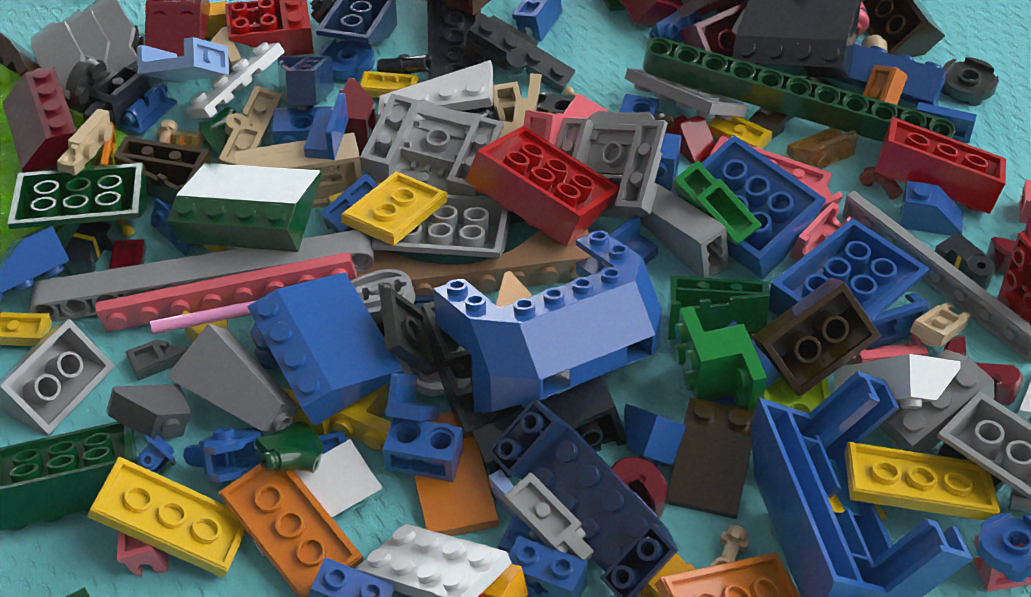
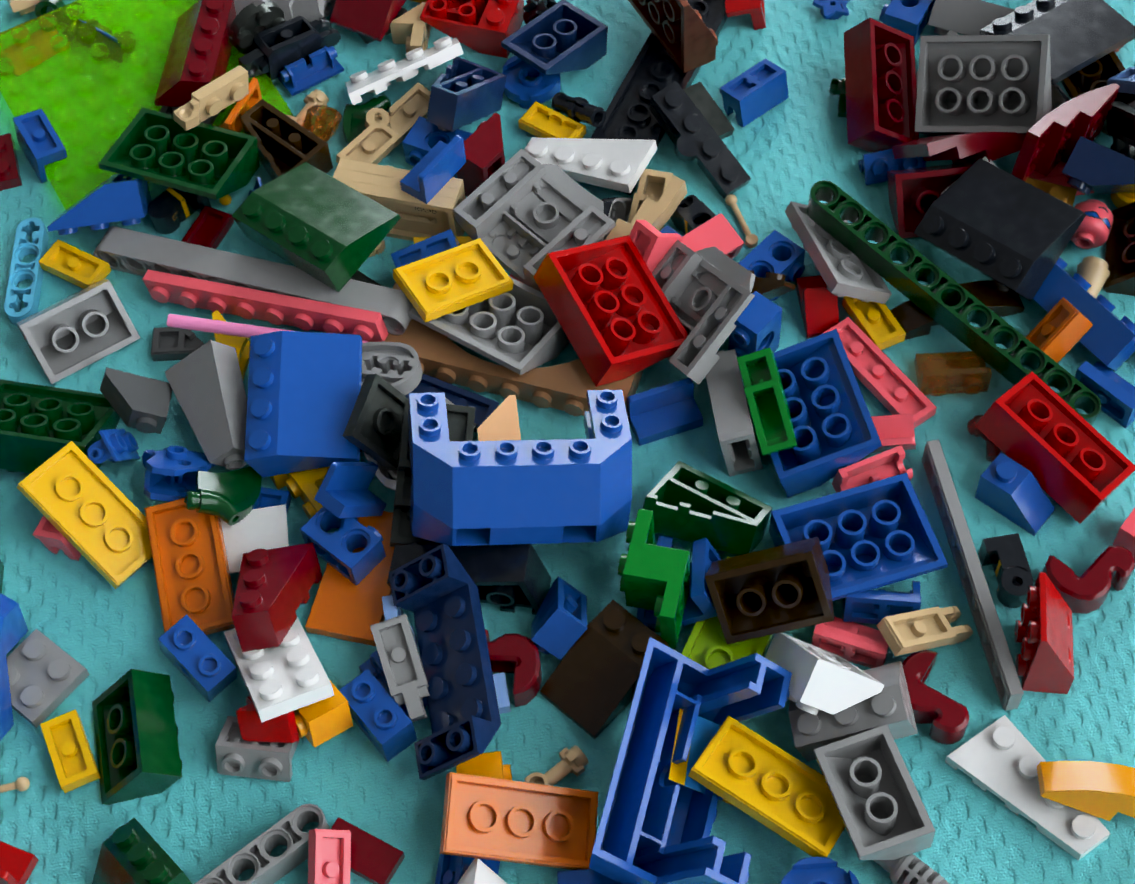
camera: 30 degrees right, 10 degrees up
(199, 61) = (354, 33): light blue panel -> none
(387, 512) = (270, 591): none -> dark red wedge

